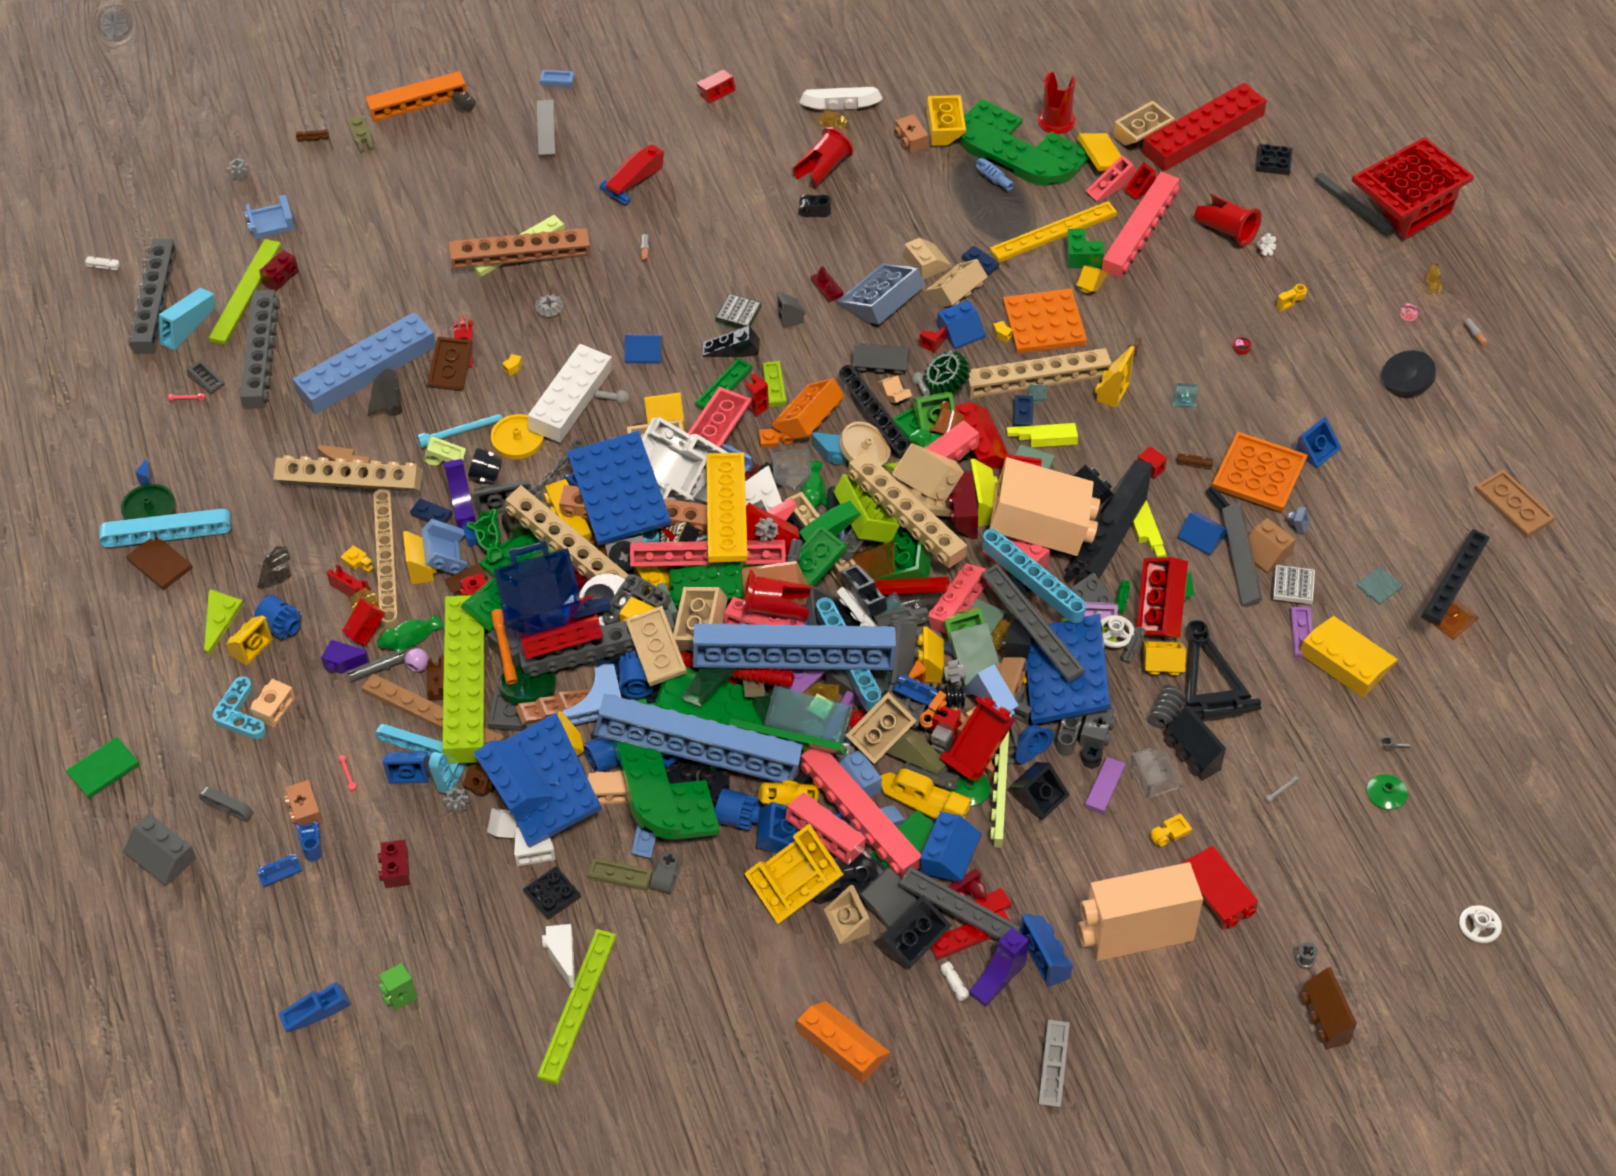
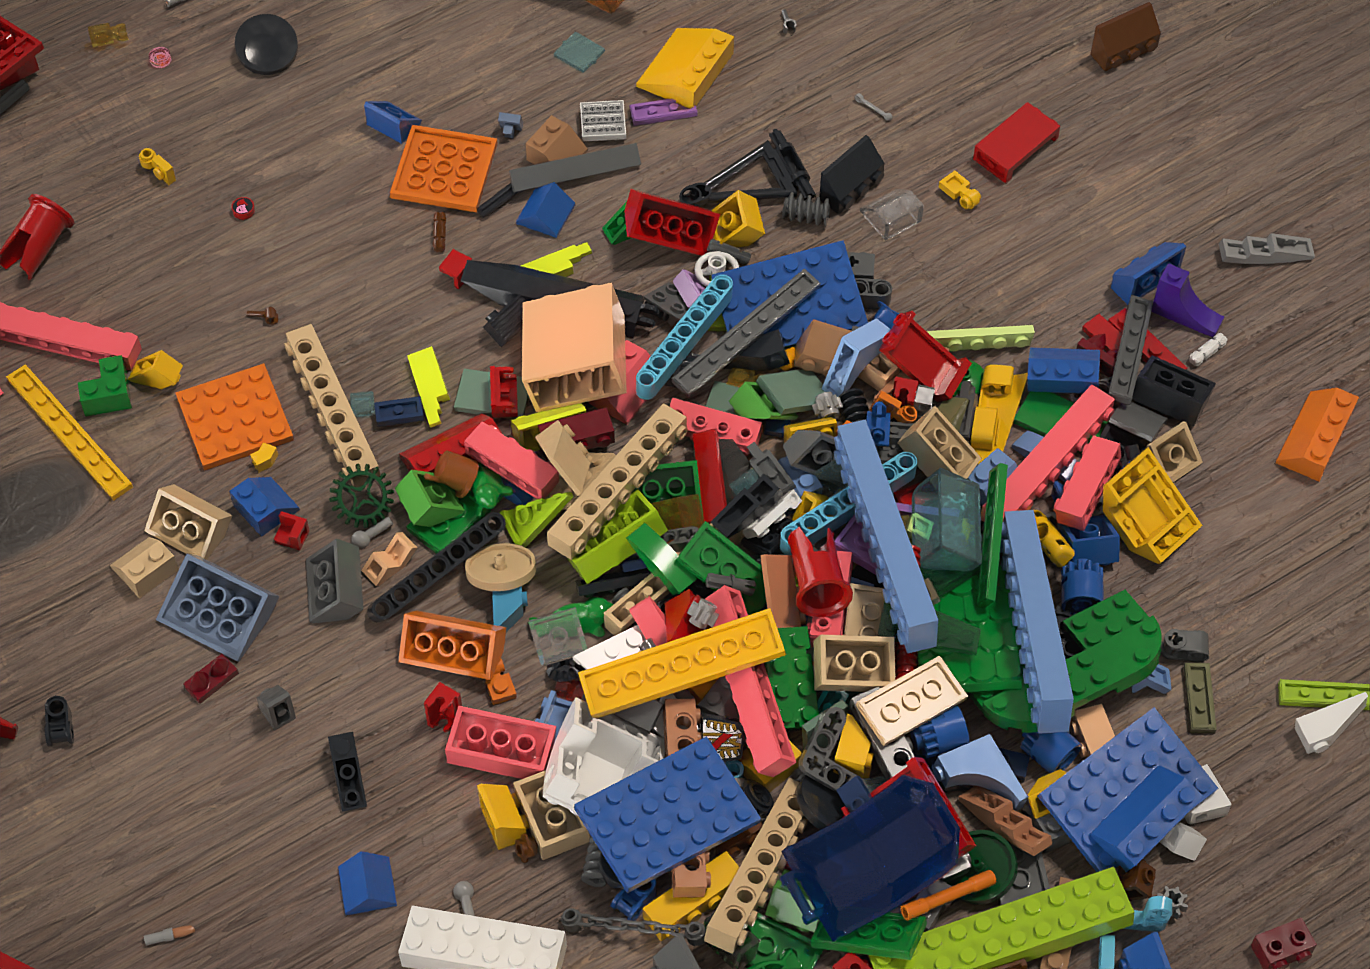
camera: 105 degrees left, 5 degrees up
(551, 893) = (1251, 763): black tile -> none
(728, 380) = (418, 765): green tile -> none
(738, 311) = (282, 774): tile -> none
(774, 378) = (398, 705): lime tile -> none
(988, 263) = (135, 505): dark blue plate -> none
(1039, 789) = (949, 309): black slope -> none
(1089, 760) = (888, 274): black wheel -> none
(1105, 785) = (920, 255): medium lavender tile -> none
(1116, 380) = (338, 310): yellow slope -> none
(1123, 596) = (658, 274): green axle -> none
(1140, 912) = (1092, 179): light nougat brick -> none
(1185, 395) = (343, 248): clear light blue piece -> none
(1266, 244) = (67, 200): white plant -> none
(1305, 953) = (1067, 68): dark grey bush -> none
(1386, 798) = (846, 25): green dish -> none

